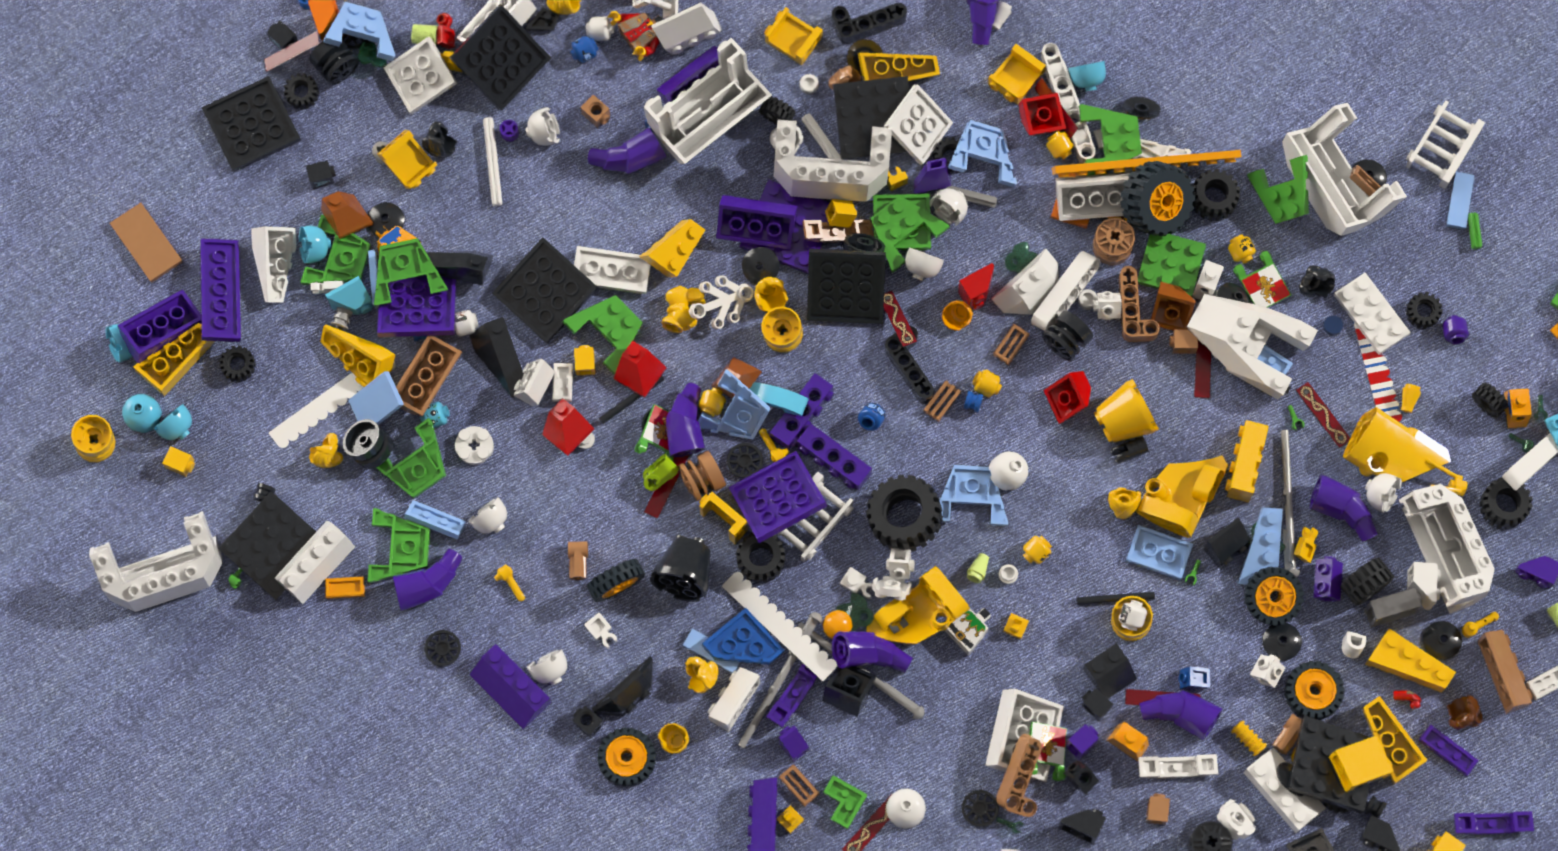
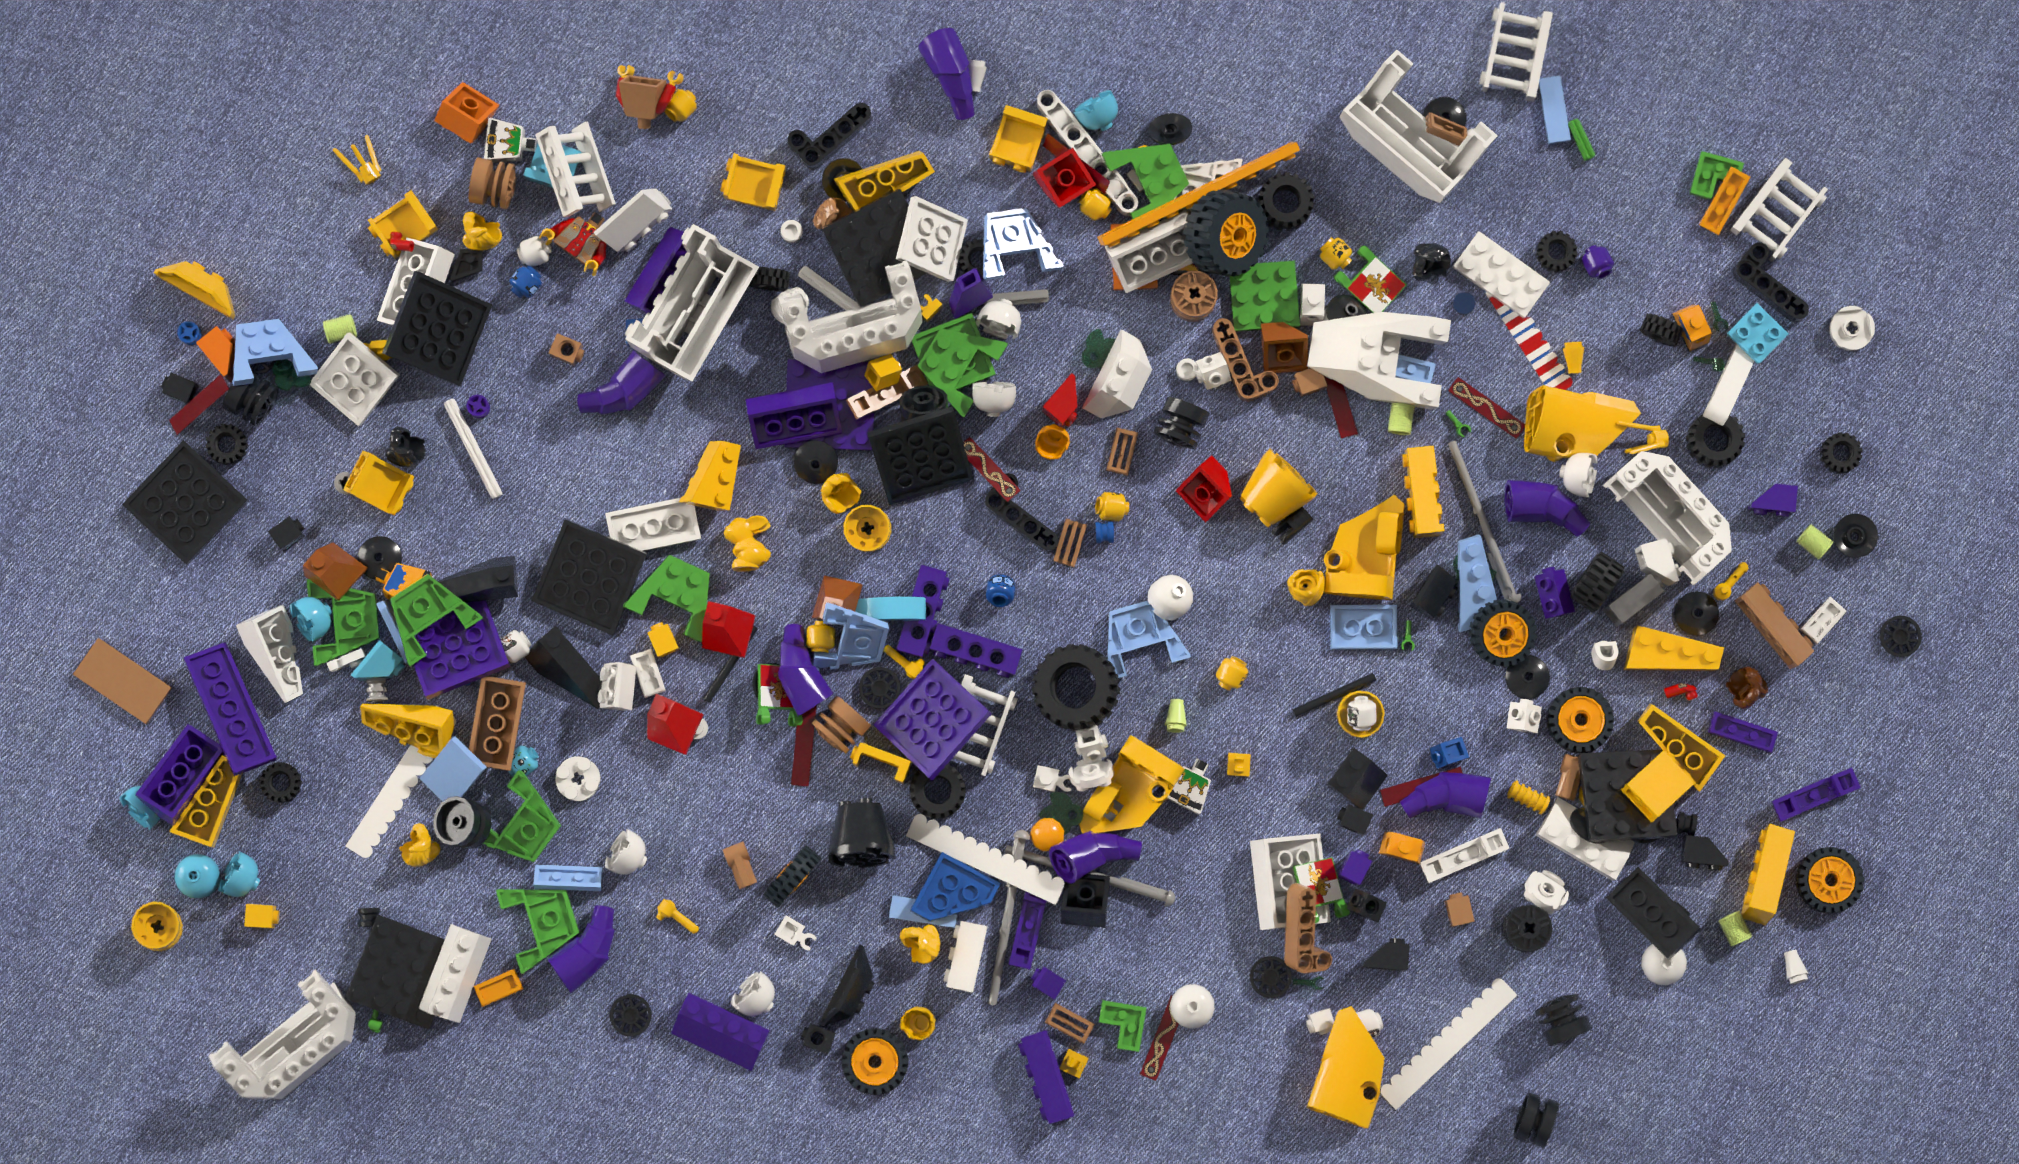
camera: 25 degrees left, 10 degrees up
(445, 34) = (362, 320): red plate -> none
(543, 127) = (515, 391): white cylinder -> none
(659, 472) = (795, 735): lime piece -> none
(723, 301) = (791, 519): white plant -> none
(1008, 574) = (1210, 710): white plate -> none
(1066, 290) = (1161, 371): white beam -> none
(1249, 397) = (1401, 418): none -> yellowish green piece
(1285, 199) = (1364, 181): bright green wing -> none
(1305, 546) = (1517, 564): yellow plate -> none

